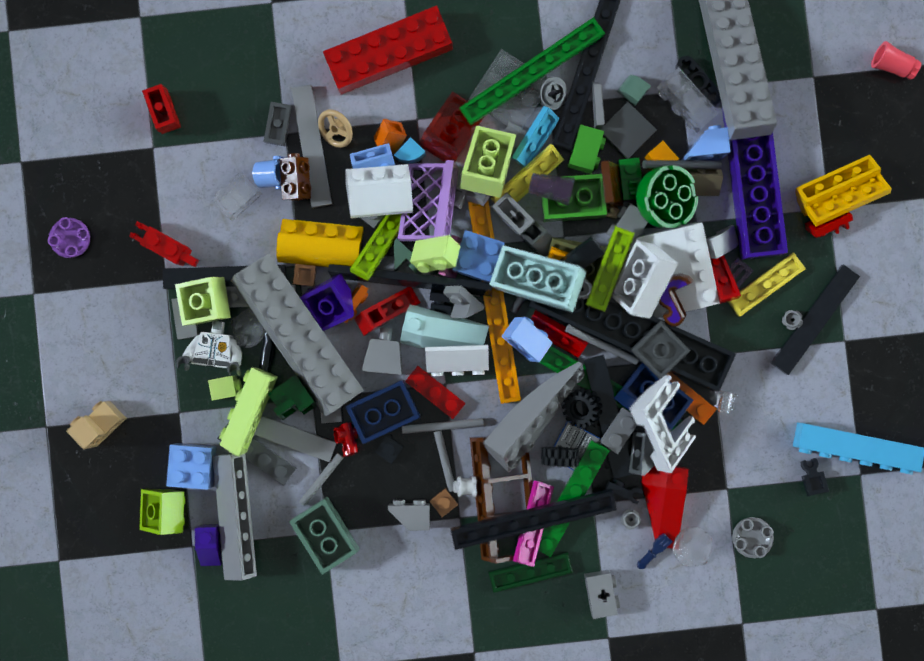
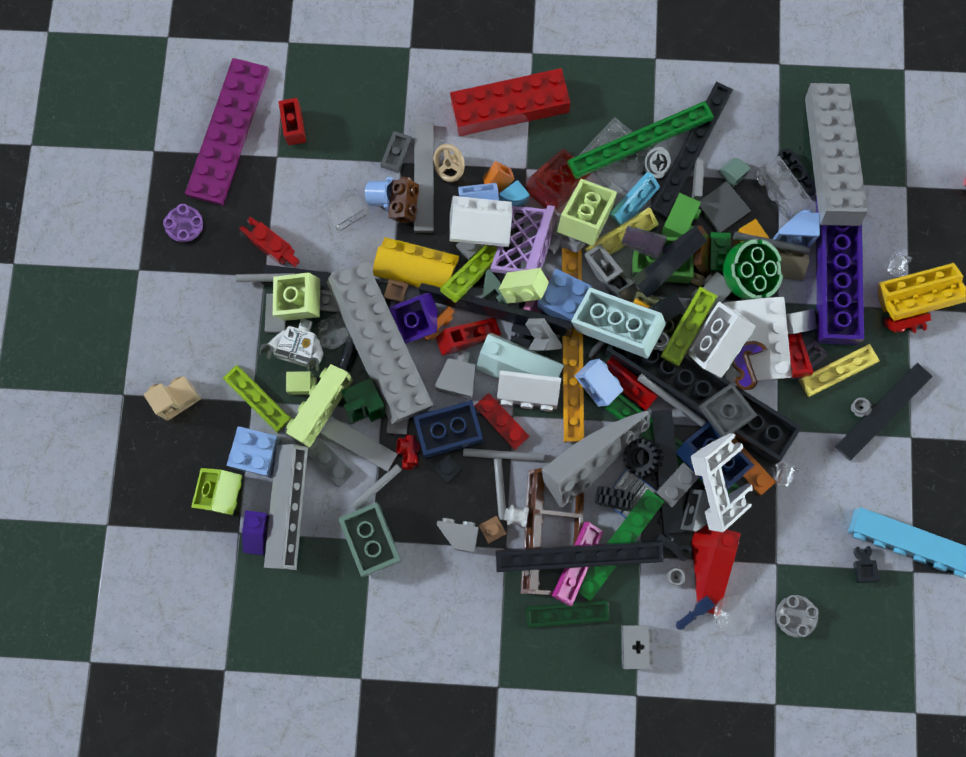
camera: 10 degrees right, 10 degrees down
(94, 128) = (227, 131): none -> magenta plate
(165, 283) = (258, 277): none -> light grey bar
(183, 409) = (257, 398): none -> lime tile
(585, 198) = (675, 255): none -> black slope
(813, 165) = (898, 265): none -> clear brick

